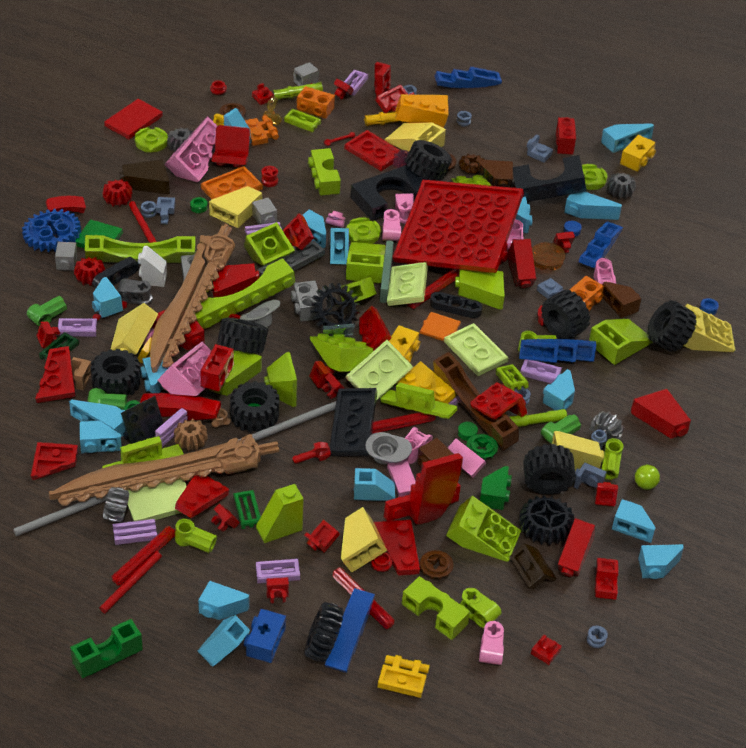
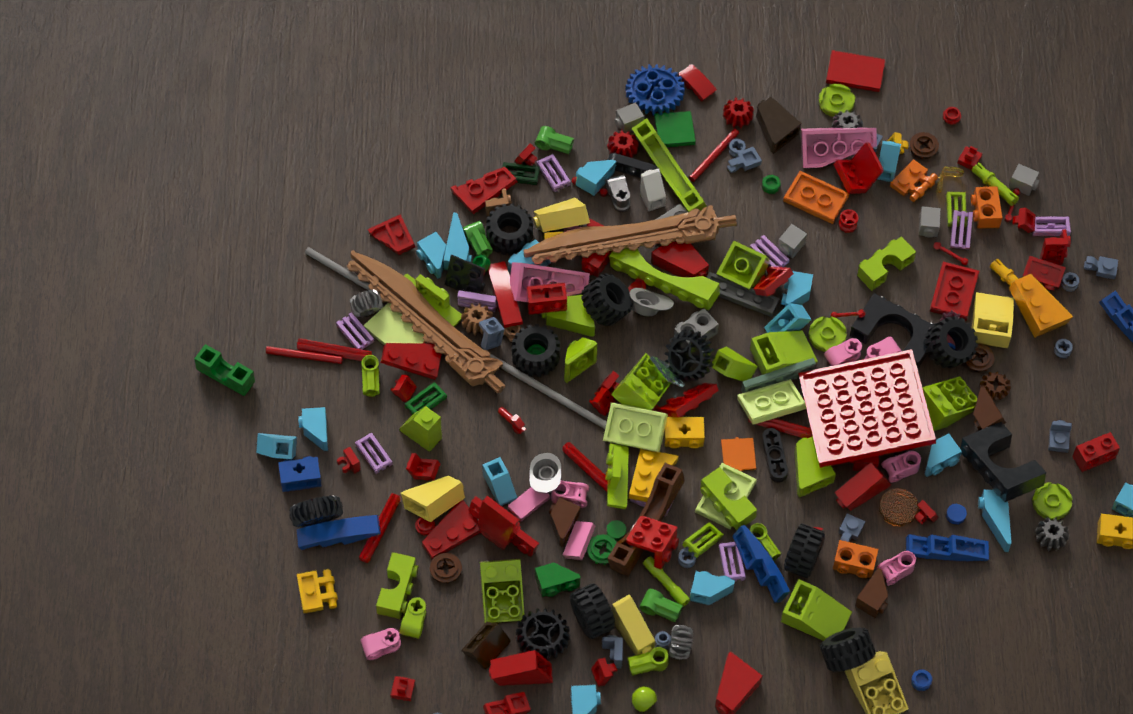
camera: 65 degrees right, 15 degrees up
(215, 423) = (492, 333): none -> sand blue bracket
(235, 206) = (783, 212): light yellow slope -> none
(305, 135) = (929, 221): none -> light grey brick
(325, 122) = (963, 214): none -> lavender tile
(335, 219) = (827, 304): bright pink plate -> none
(353, 421) = (567, 432): black tile -> none
(366, 197) = (861, 313): none -> red hinge
(409, 71) = (1104, 266): none -> sand blue plate
(473, 346) = (736, 512): none -> lime arch

